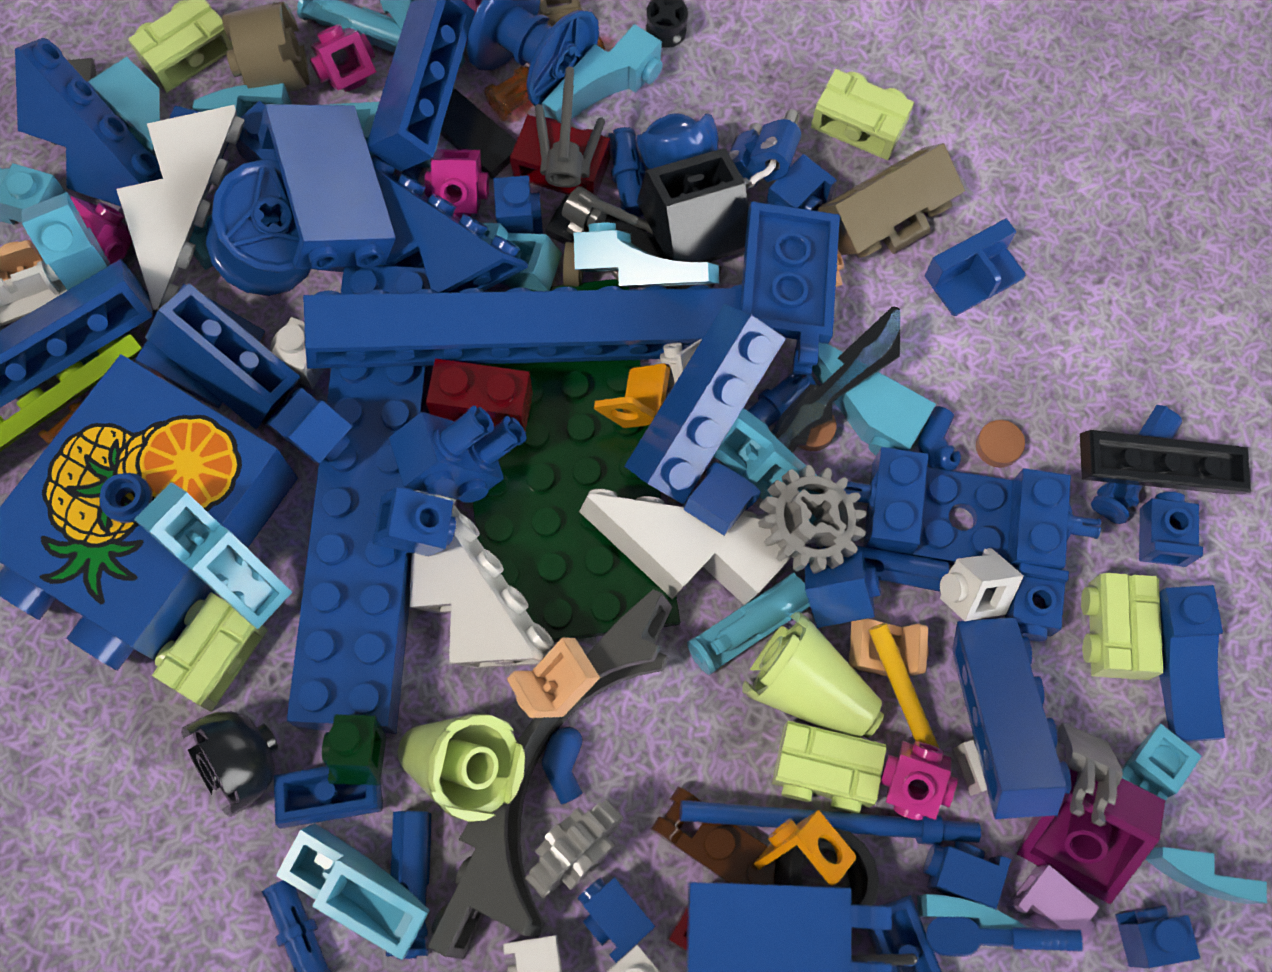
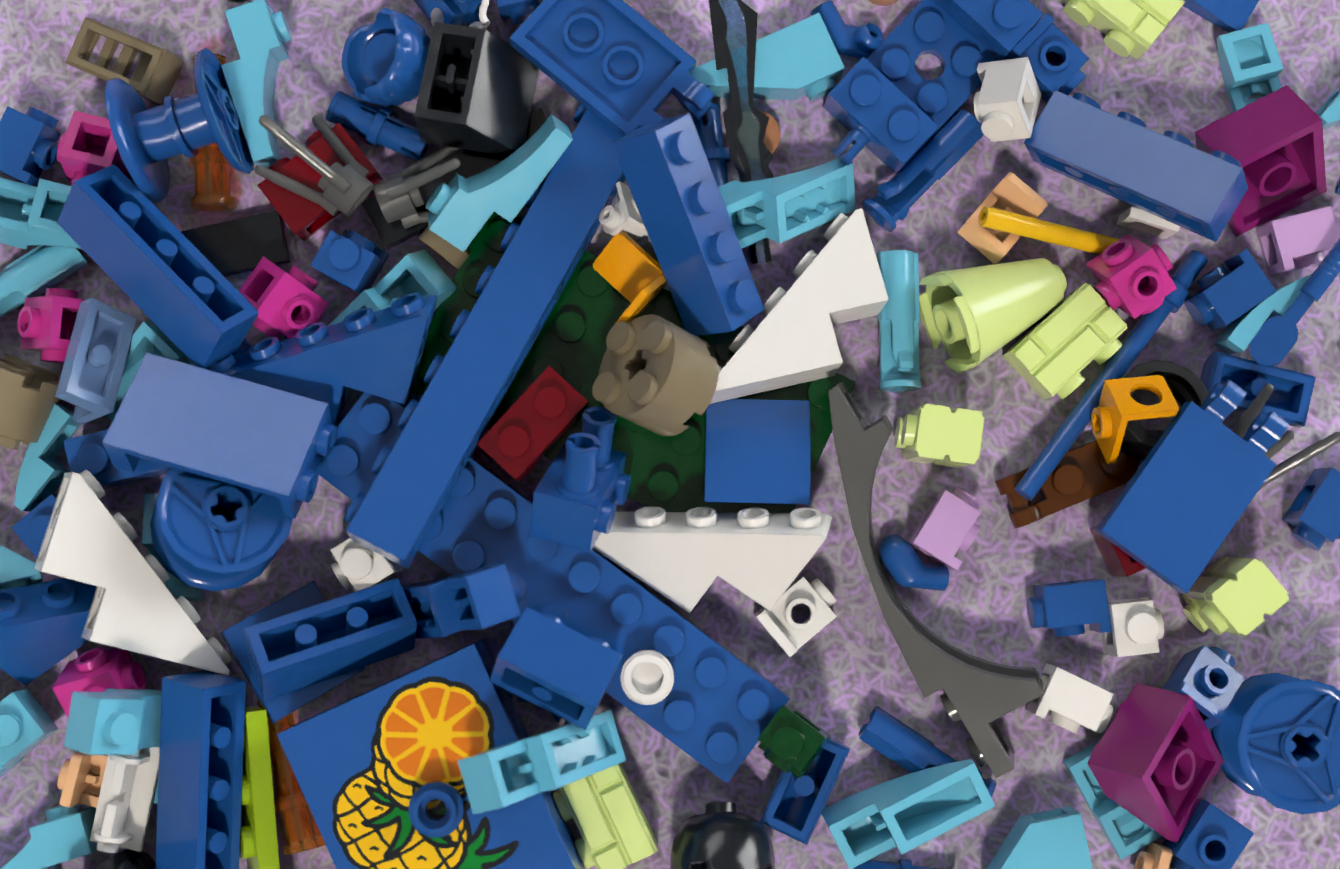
camera: 60 degrees left, 15 degrees up
(295, 518) = (555, 667): none -> blue brick
(333, 82) = (95, 360): none -> medium blue panel
(333, 598) = (647, 677): none -> white tile
(414, 522) = (630, 563): blue brick -> none
(447, 681) = (780, 624): none -> white brick
(465, 764) = (869, 656): yellowish green cone -> none
(555, 682) = (855, 531): light nougat bracket -> none
(570, 575) = (757, 451): none -> blue slope
(574, 848) = (998, 605): light grey gear -> none
(575, 451) = (655, 374): none -> dark tan brick
(613, 769) = (947, 527): none -> lavender brick
(680, 706) = (940, 435): none -> yellowish green brick
(721, 498) = (784, 271): blue tile -> none
(833, 525) = (868, 186): light grey gear -> none
(842, 592) = (927, 222): blue brick -> none
(1093, 761) = (1221, 122): light grey arm -> none

